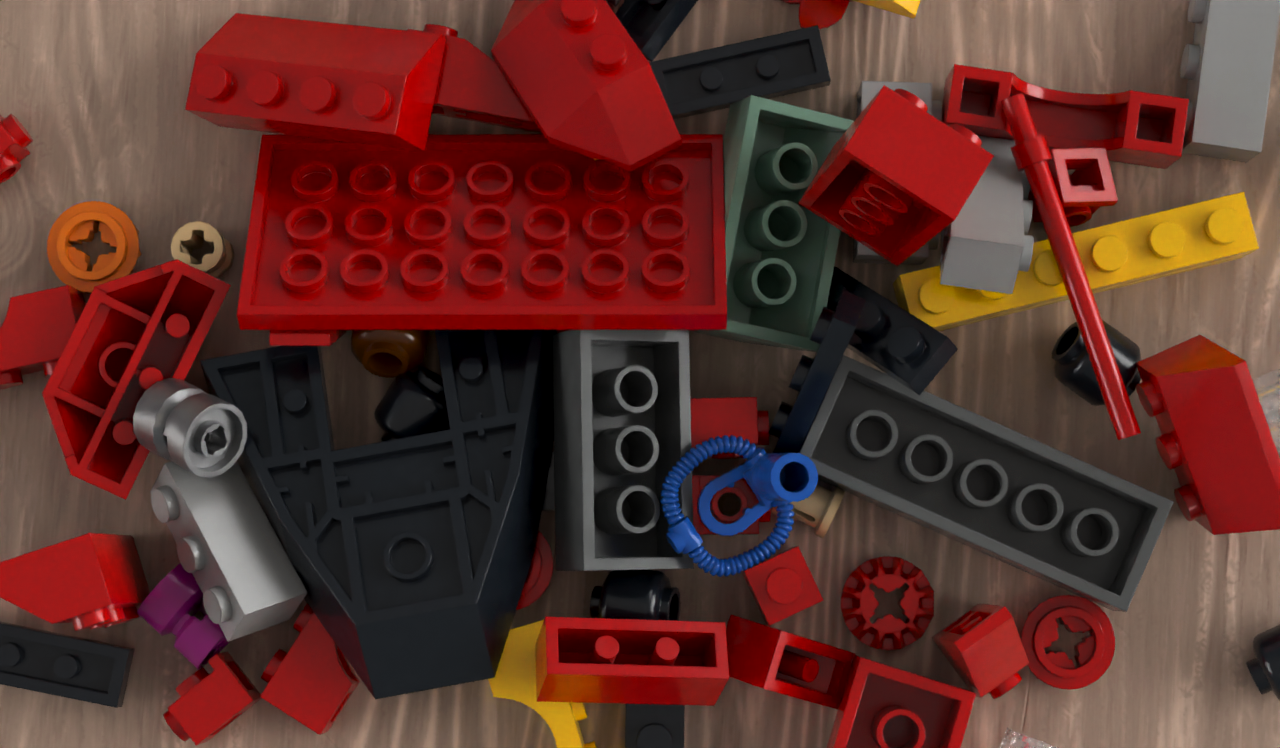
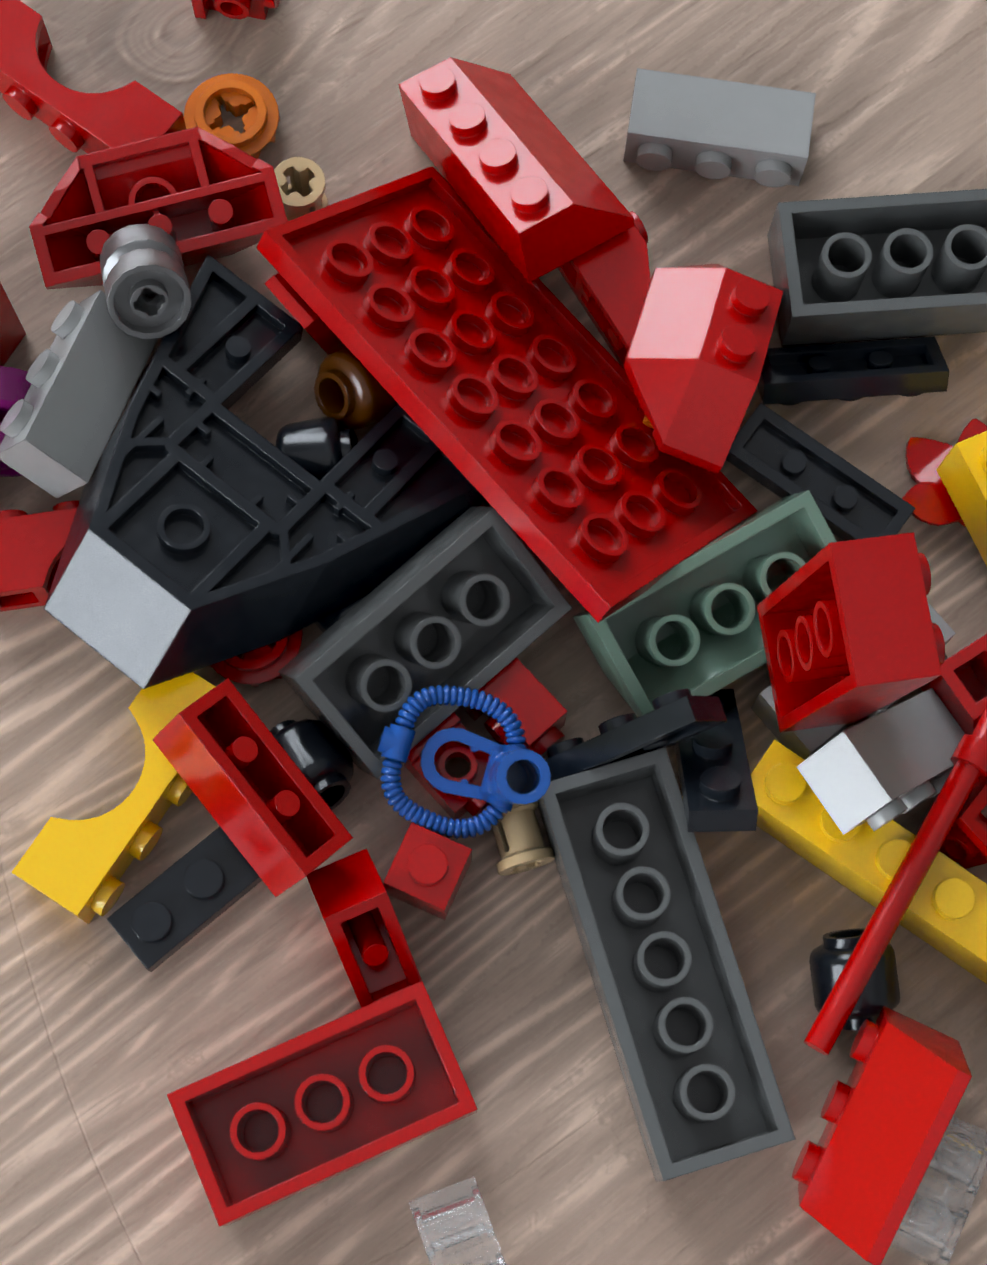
camera: 40 degrees right, 10 degrees down
(859, 603) = (468, 999): red gear -> none
(984, 649) = (522, 1088): red slope -> none
(1092, 653) = (624, 1153): red gear -> none

